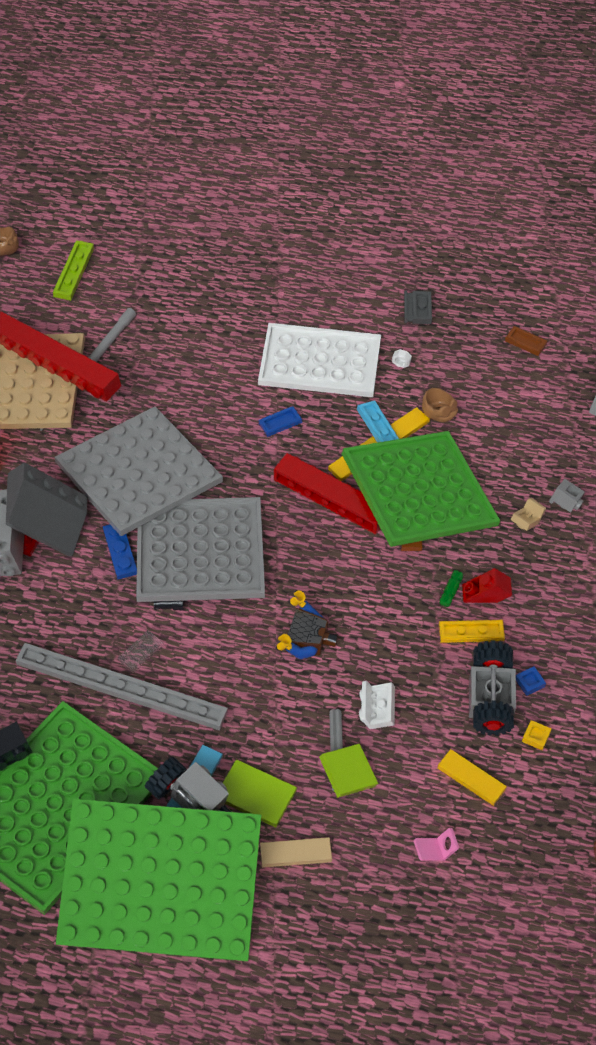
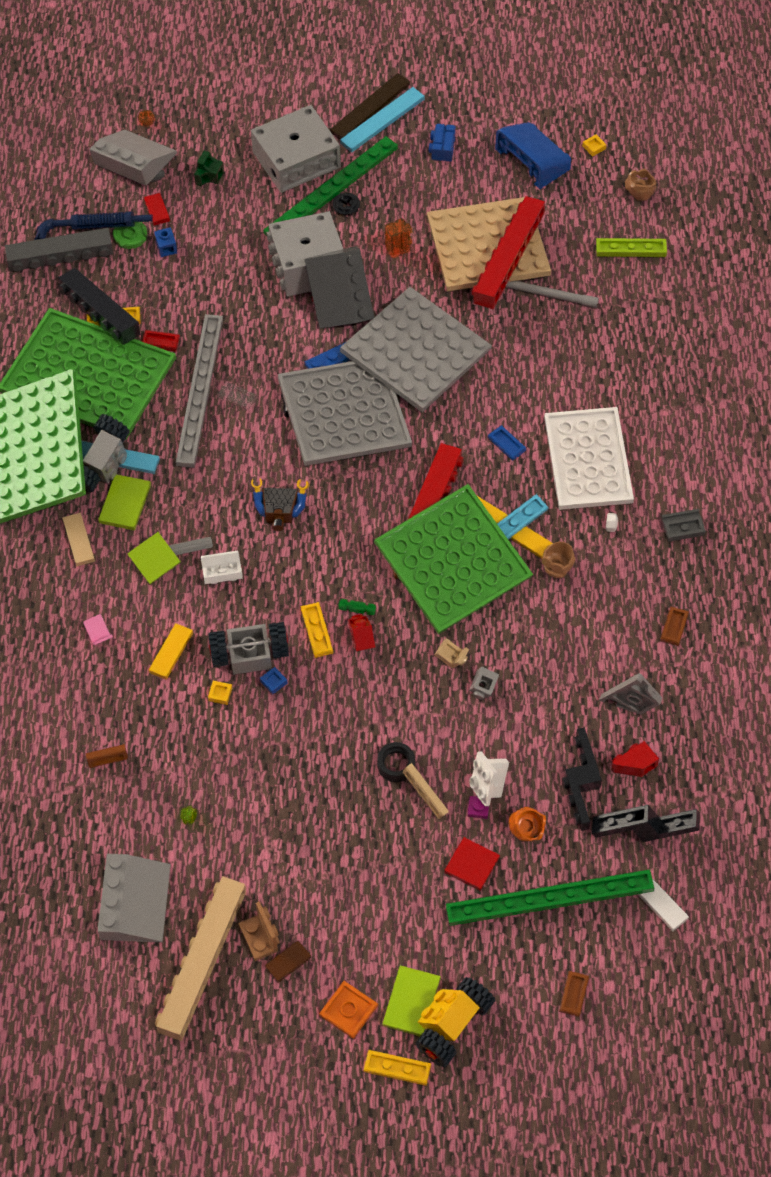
camera: 80 degrees right, 5 degrees up
(33, 714) = (162, 340): none -> red tile

